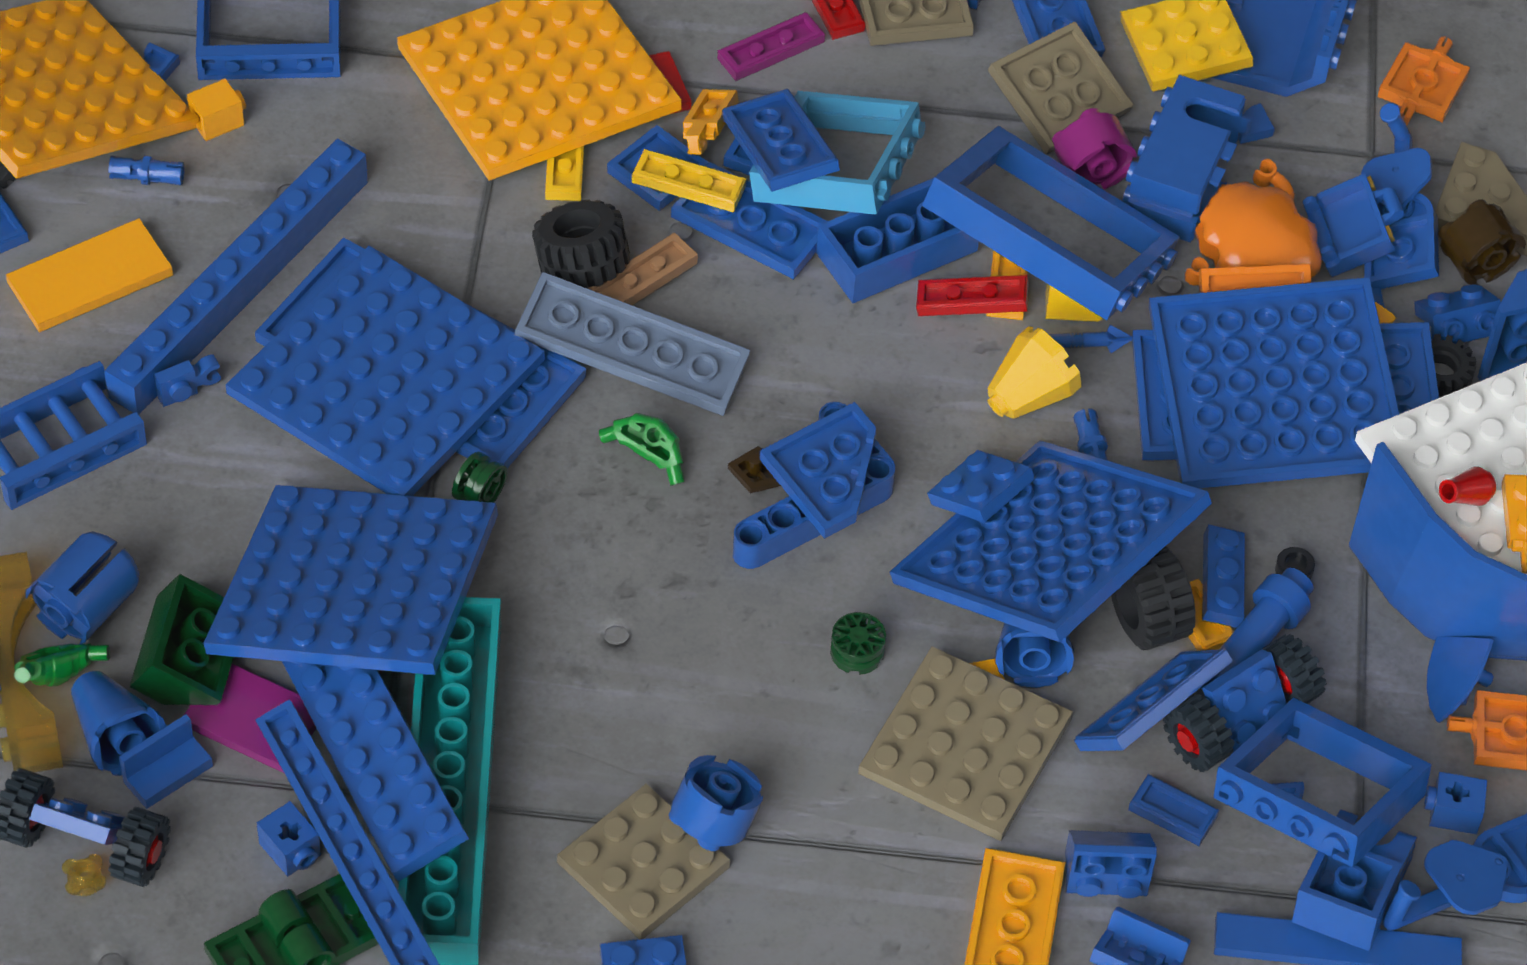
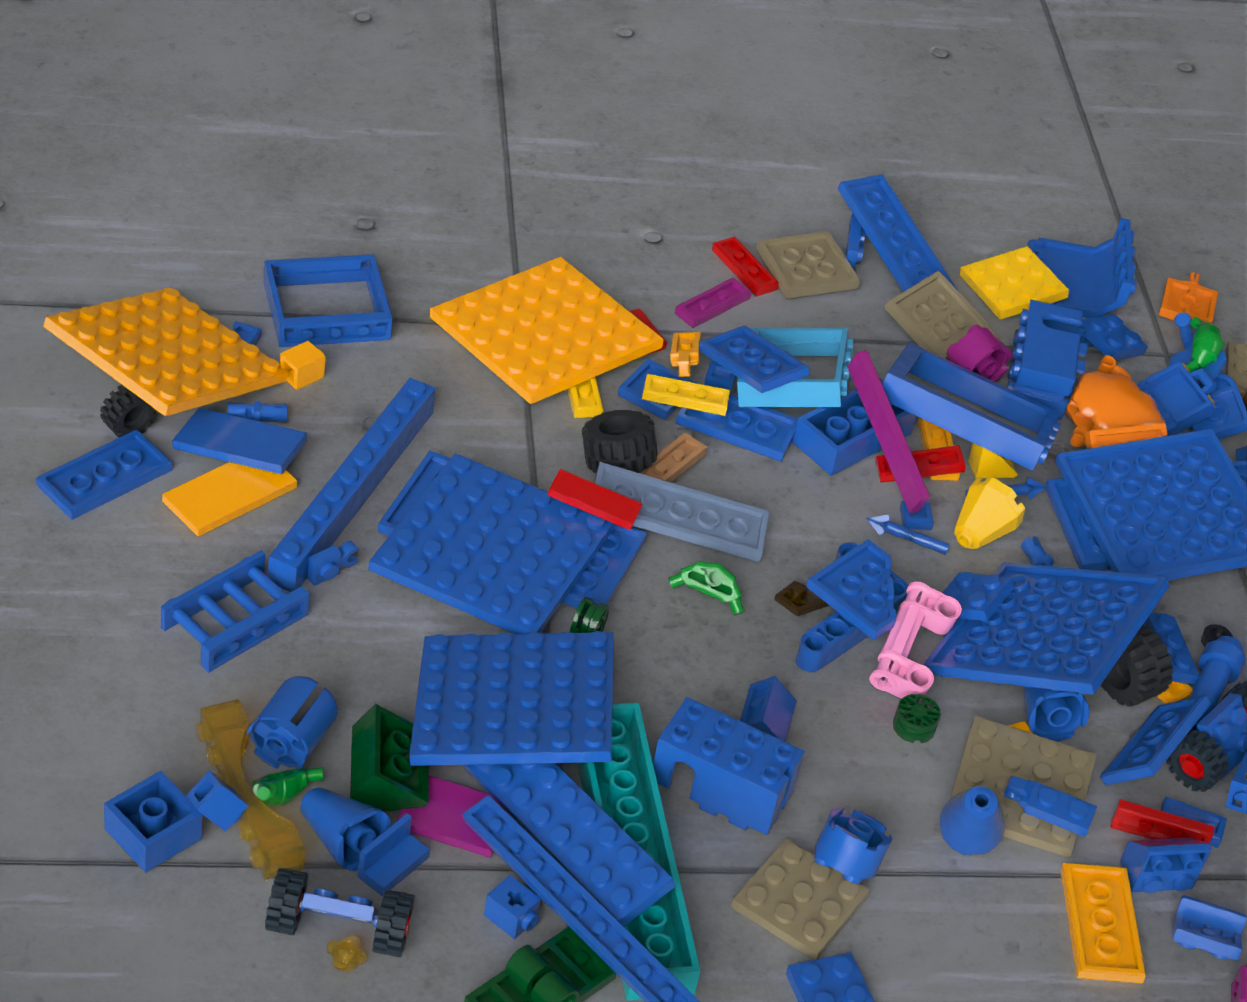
camera: 15 degrees left, 10 degrees down
(114, 209) = (240, 440): none -> blue tile
(520, 323) = (595, 499): none -> red tile
(588, 687) = (734, 765): none -> blue piece
(673, 617) = (769, 707): none -> blue panel
(867, 533) = (931, 611): none -> bright pink piece
(883, 786) = (973, 821): none -> blue cone
(898, 376) = (882, 524): none -> blue piece
(926, 254) = (888, 432): none -> magenta tile
(948, 366) = (918, 520): none -> blue tile
(987, 774) = (1051, 805): none -> blue hinge
(1126, 813) = (1157, 824): none -> red tile
(1295, 127) = (1113, 337): none -> blue plate
(1407, 153) = (1206, 344): none -> green piece

